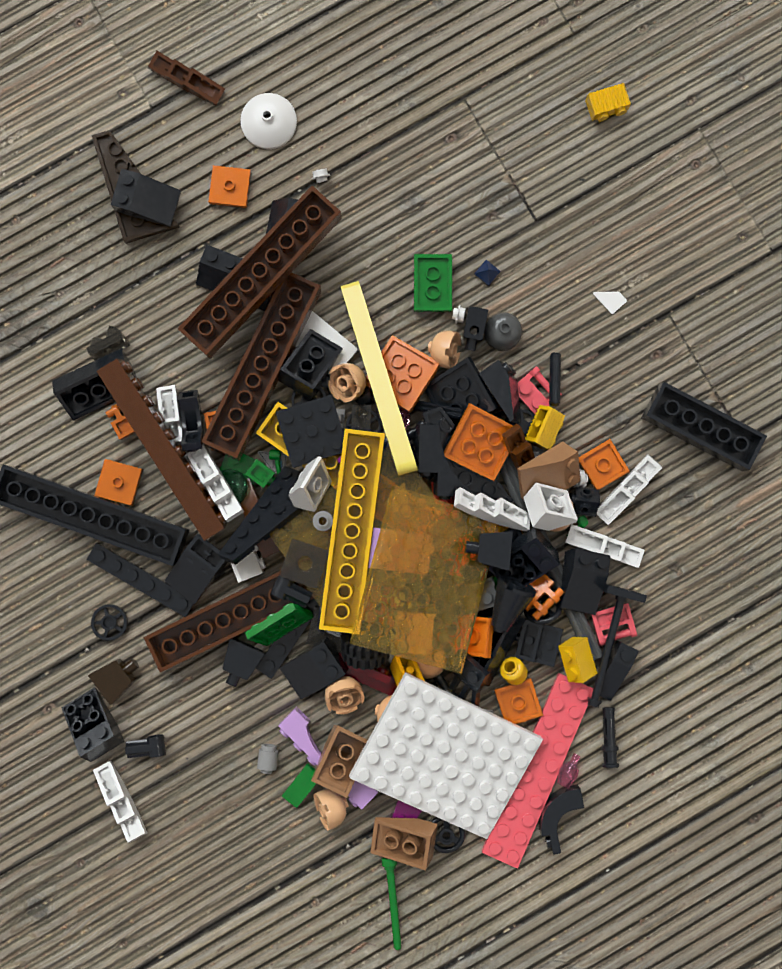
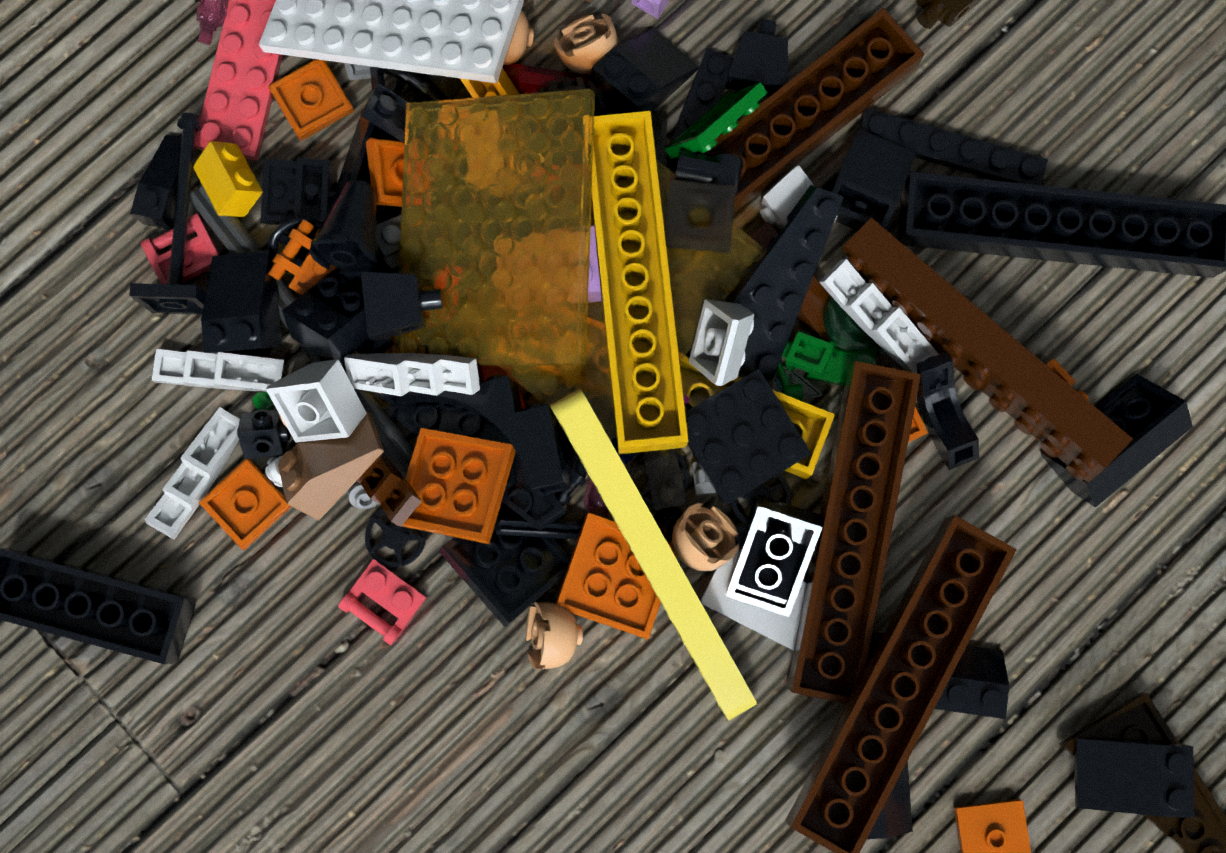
camera: 170 degrees right, 5 degrees down
(109, 622) = (982, 75): black wheel -> none
(114, 341) = (1125, 502): clear smoke tile -> none
(118, 482) = (1032, 292): orange plate -> none
(169, 408) = (987, 423): white slope -> none
(329, 518) = (684, 296): light grey brick -> none
(432, 282) = (599, 749): green plate -> none
(459, 314) = (542, 703): white plate -> none
(477, 318) = (512, 700): black torso -> none
(487, 272) = (510, 791): dark blue slope -> none
(503, 331) = (460, 692): dark grey cylinder -> none
(504, 387) = (437, 589): black slope -> none
(513, 671) = (337, 139): yellow head -> none
(545, 427) = (354, 540): yellow brick -> none
(555, 379) = (354, 628): black axle -> none
(609, 747) = (154, 65): black pin -> none
(611, 300) = (285, 793): white sticker -> none

